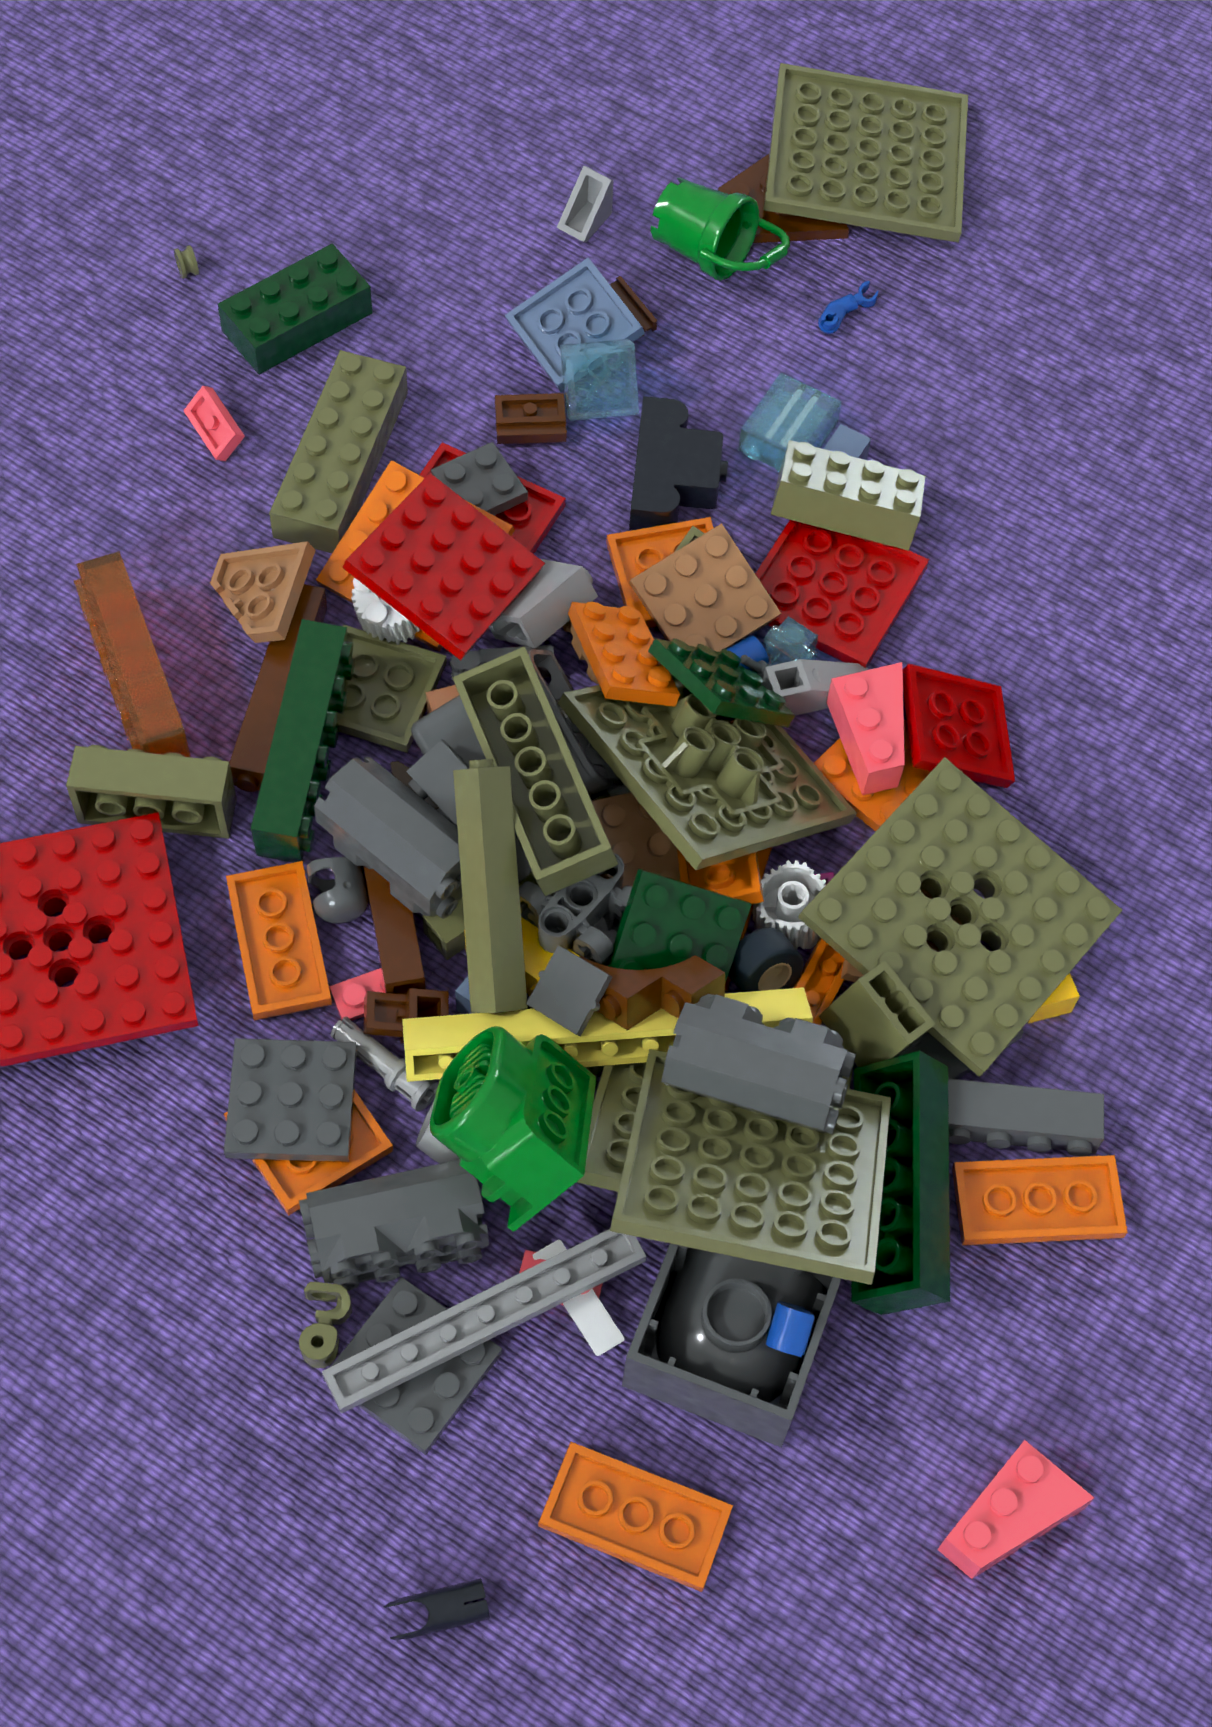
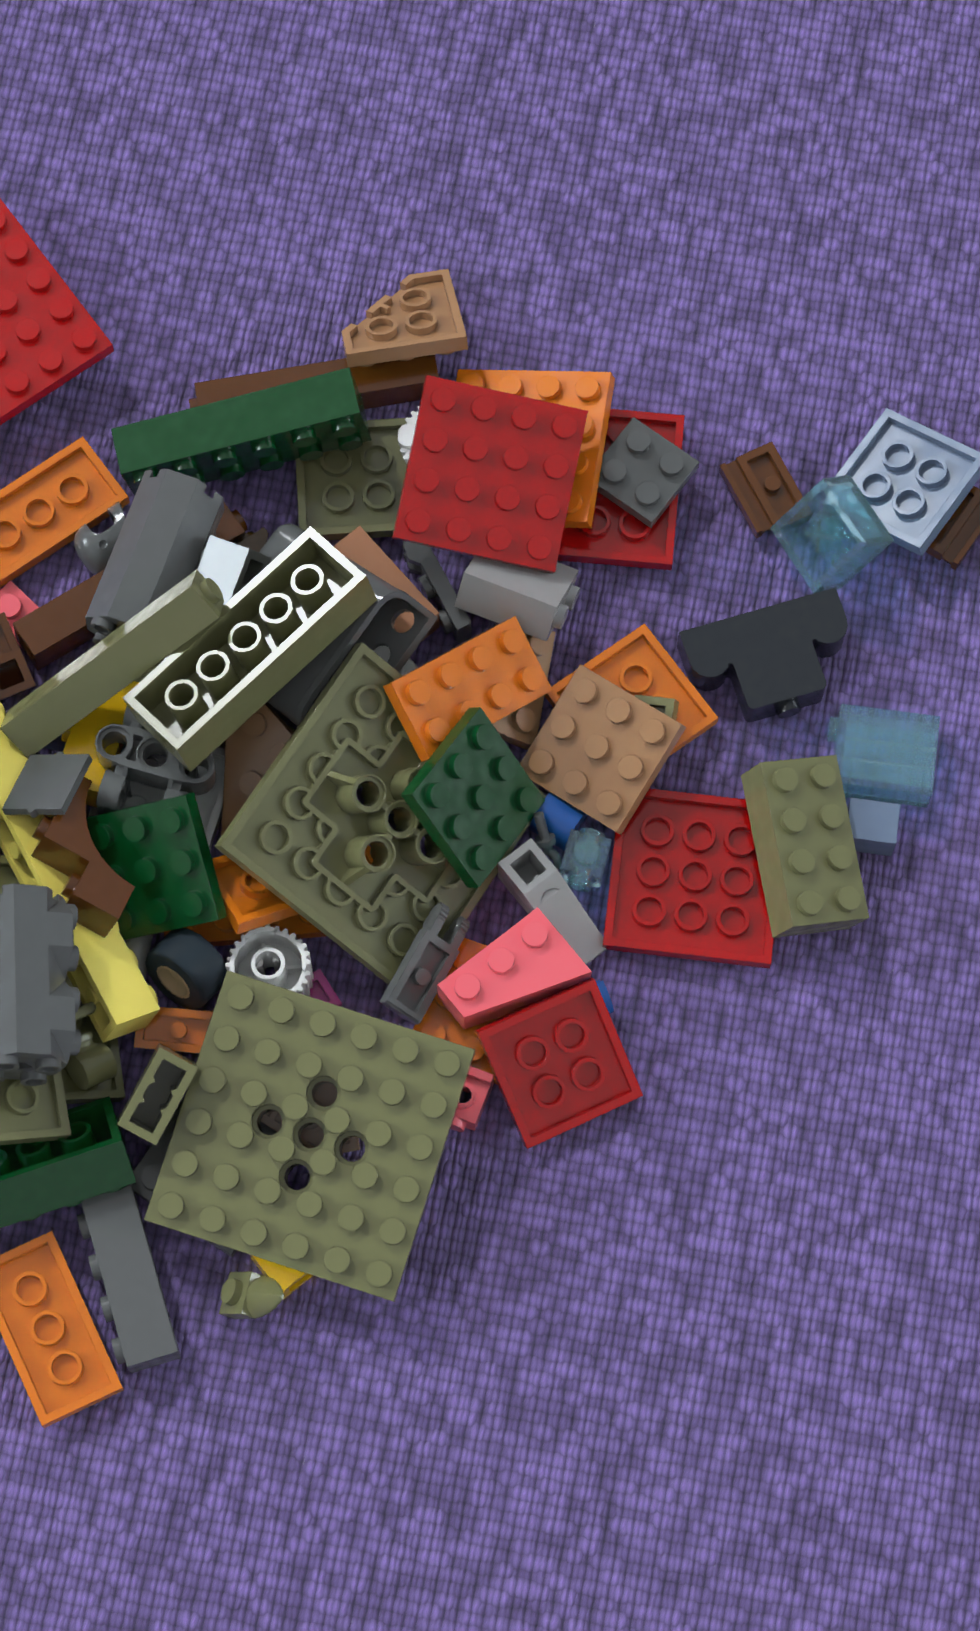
camera: 70 degrees right, 10 degrees up
(129, 657) = (267, 248): clear orange brick -> none
(186, 261) = (797, 71): olive bush -> none
(187, 792) = (138, 328): olive brick -> none
(214, 423) = (603, 190): coral plate -> none
(295, 308) = (786, 201): dark green brick -> none
(339, 451) = (627, 321): olive brick -> none
(837, 785) = (425, 966): none -> dark grey hinge
(1071, 1023) = (249, 1295): none -> olive plate

